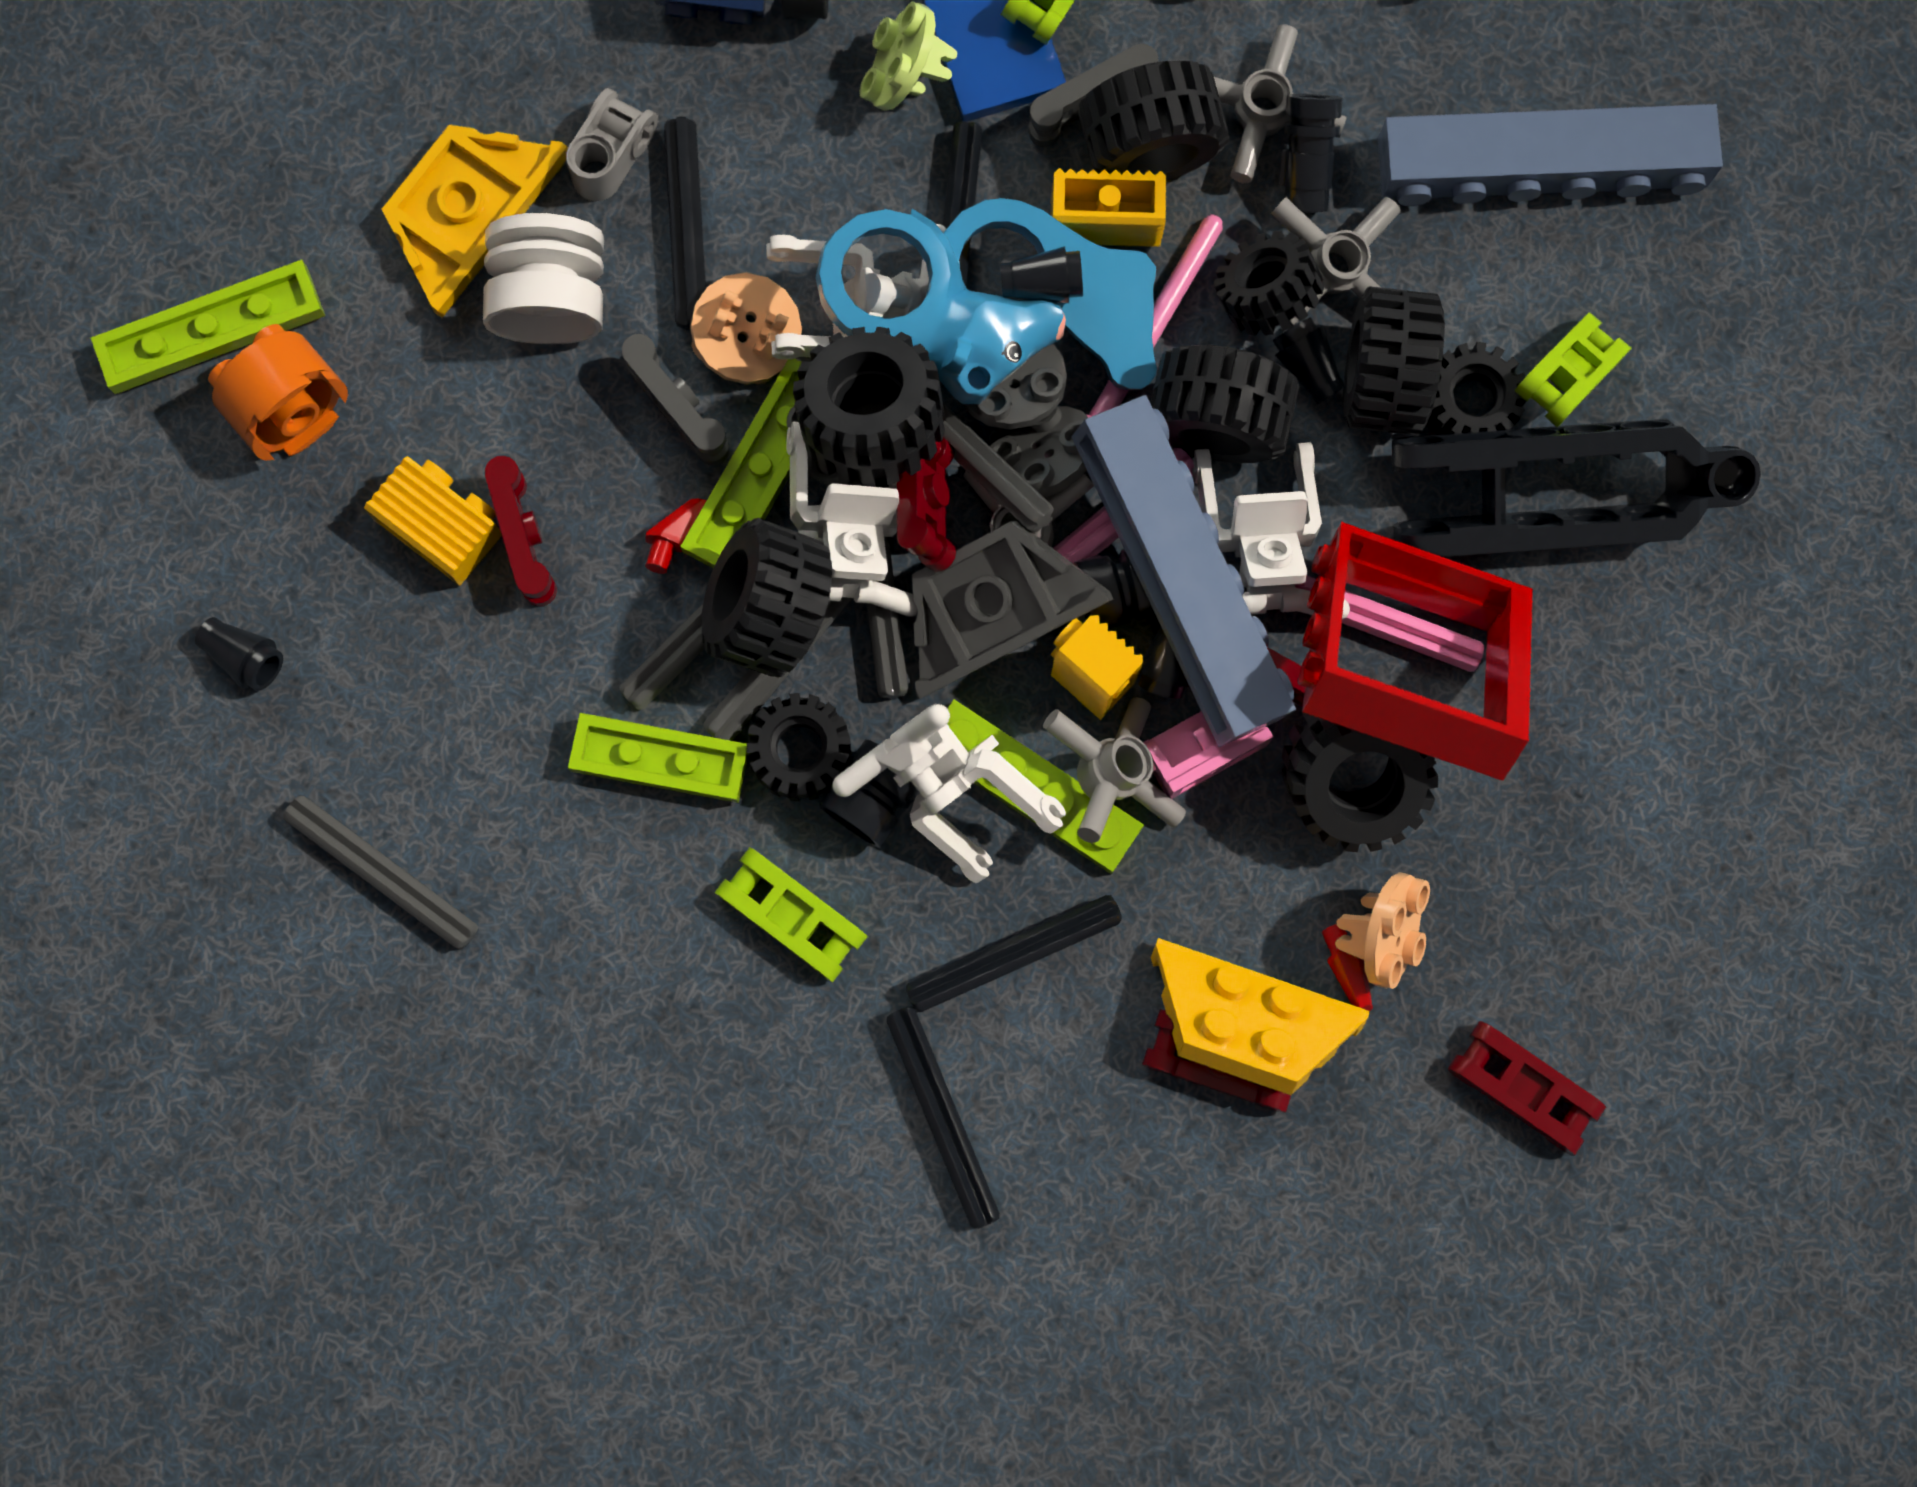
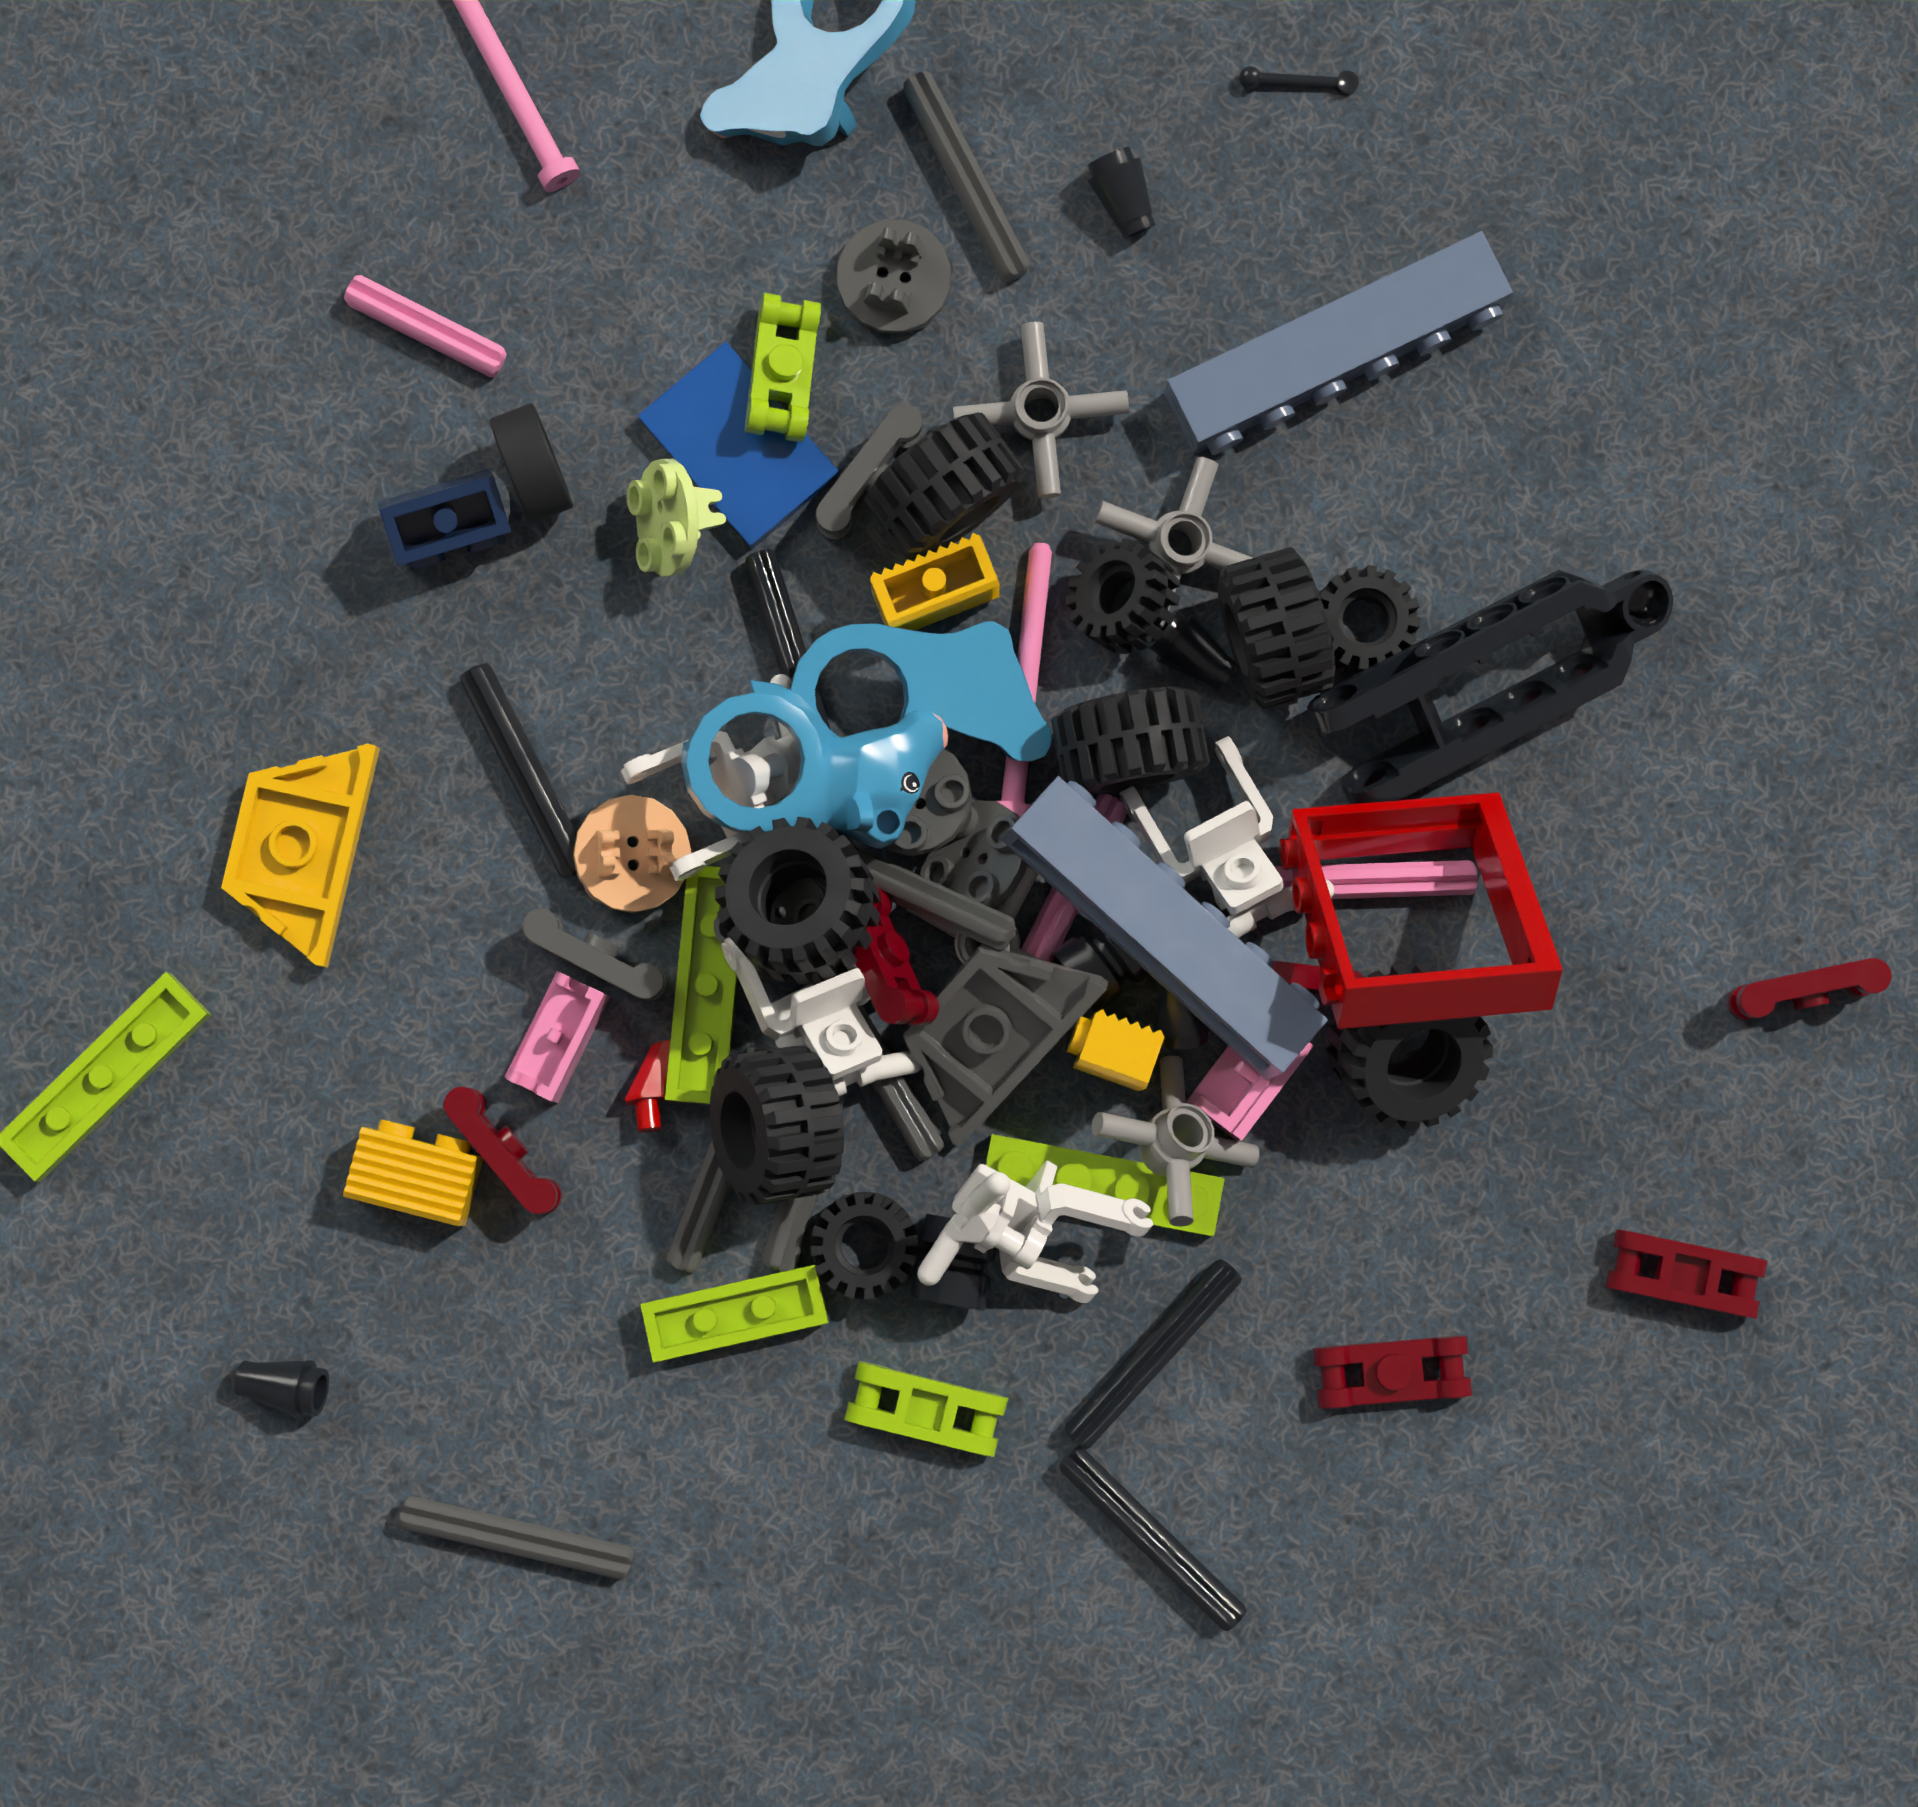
camera: 25 degrees left, 5 degrees up
(277, 393) = (206, 1119): orange brick -> none
(543, 279) = (414, 888): white wheel -> none
(610, 135) = (415, 712): light grey piece -> none
(613, 457) = (557, 1037): none -> bright pink hinge
(1044, 276) = (907, 693): black cone -> none
(1250, 1020) = (1402, 1324): yellow wing -> none
(1310, 156) = (1108, 448): black axle -> none
(1348, 970) = (1474, 1230): red bar -> none
(1391, 934) = (1498, 1186): light nougat plate -> none
(1574, 367) = (1452, 555): lime plate -> none
(1744, 878) = (1809, 987): none -> dark red plate

